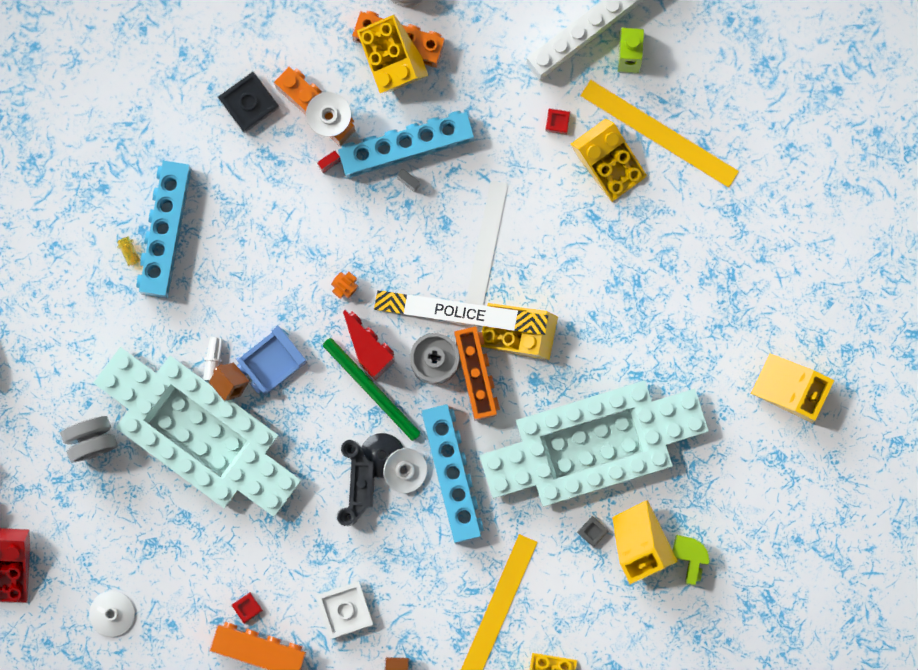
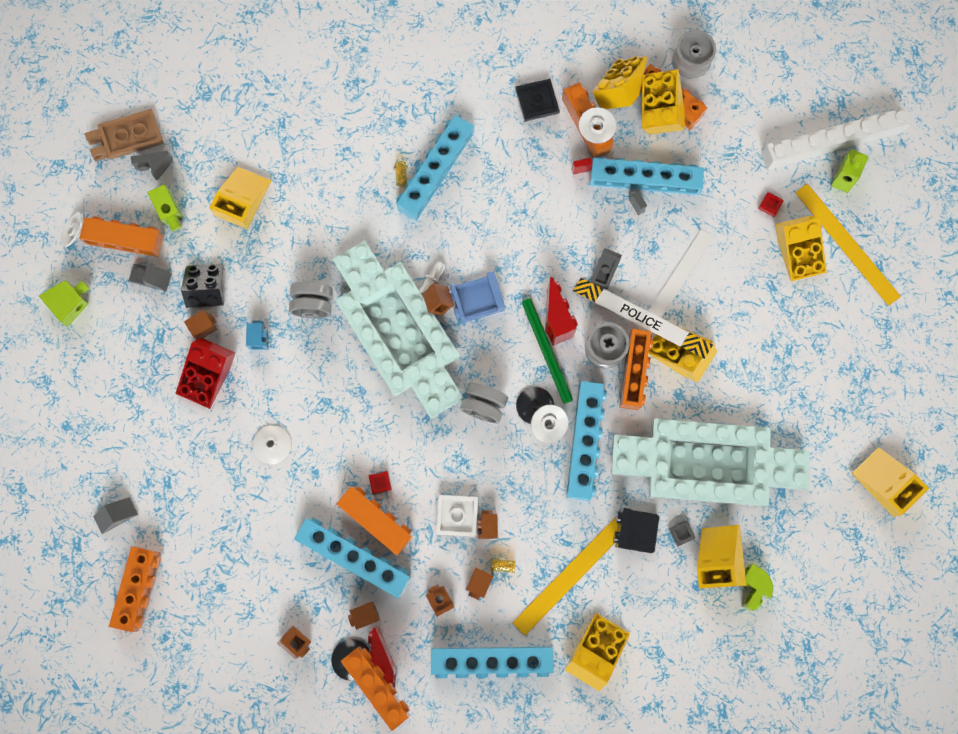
camera: 20 degrees right, 5 degrees down
(44, 501) = (256, 336): none -> dark azure brick
(325, 479) = (484, 403): none -> light grey wheel
(336, 48) = (621, 83): none -> yellow slope
(344, 285) = (557, 262): orange gear -> none
(361, 483) = (510, 420): black plate -> none
(381, 607) = (488, 525): none -> dark orange brick
(401, 271) = (606, 268): none -> dark grey slope
(414, 643) = (503, 565): none -> clear yellow pin
(542, 548) = (636, 530): none -> black bracket

